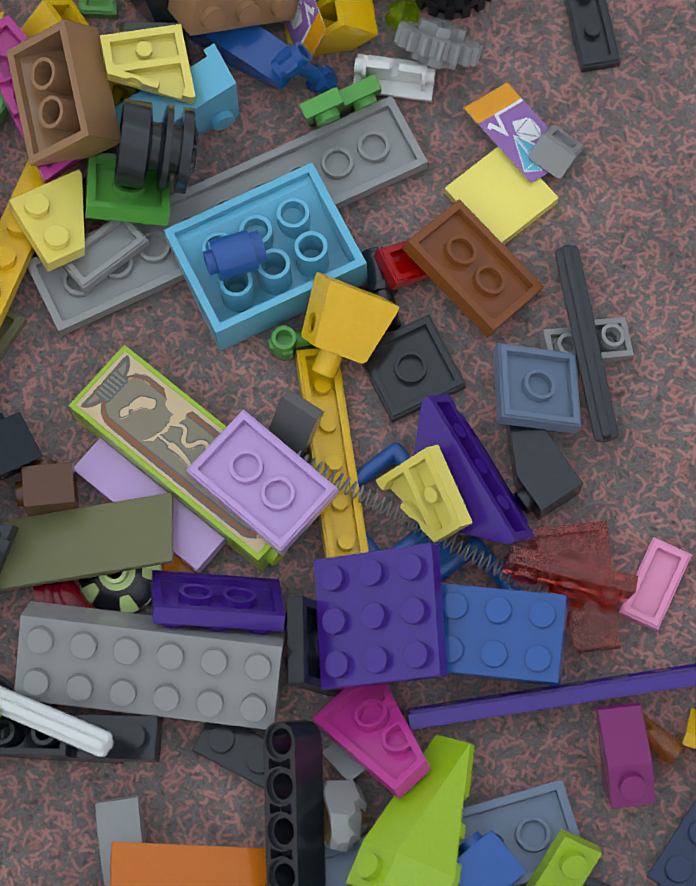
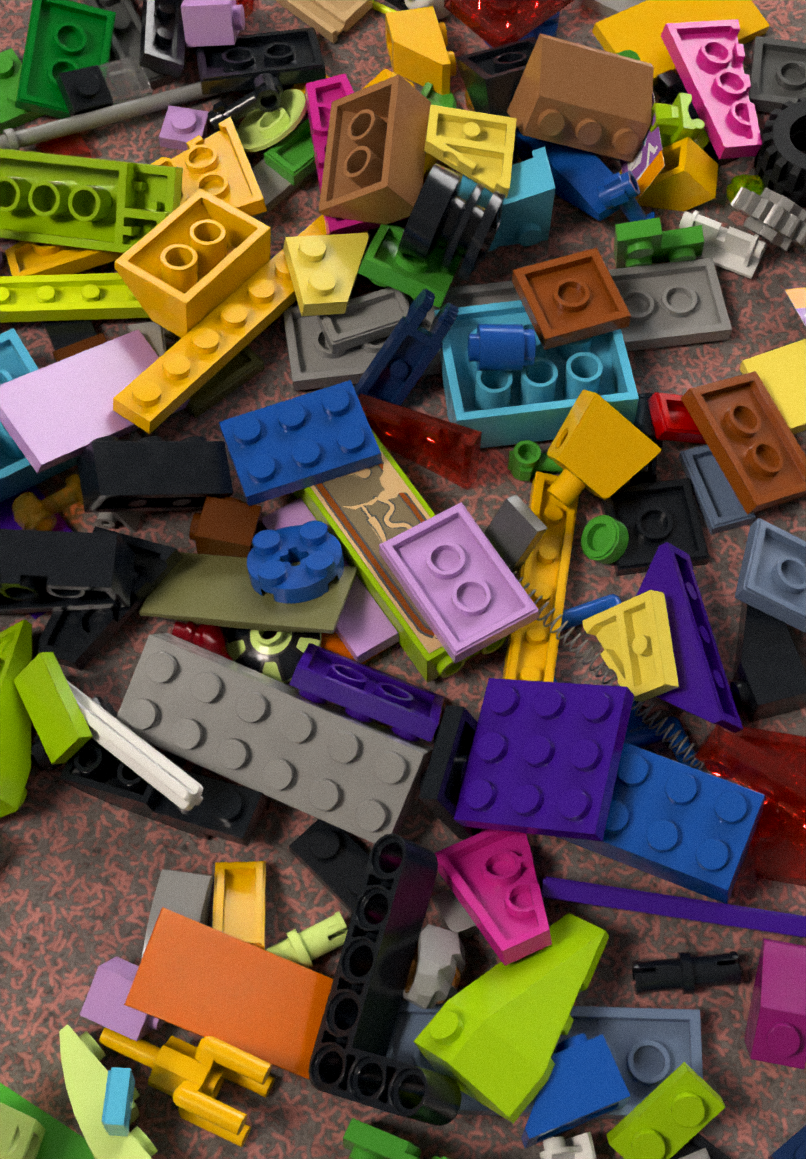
camera: 15 degrees right, 10 degrees down
(86, 393) = (300, 442): none -> blue plate
(106, 488) = (310, 544): none -> blue plate
(151, 280) = (407, 351): none -> dark blue hinge
(168, 809) = (241, 900): none -> yellow tile
(189, 353) = (426, 440): none -> clear red wing
(236, 824) = (313, 941): none -> yellowish green pin
(280, 186) = (570, 298): none -> dark orange plate
(372, 396) = (604, 539): none -> bright green tile
(450, 320) = (712, 491): none -> sand blue tile
(543, 751) = (686, 973): none -> black pin

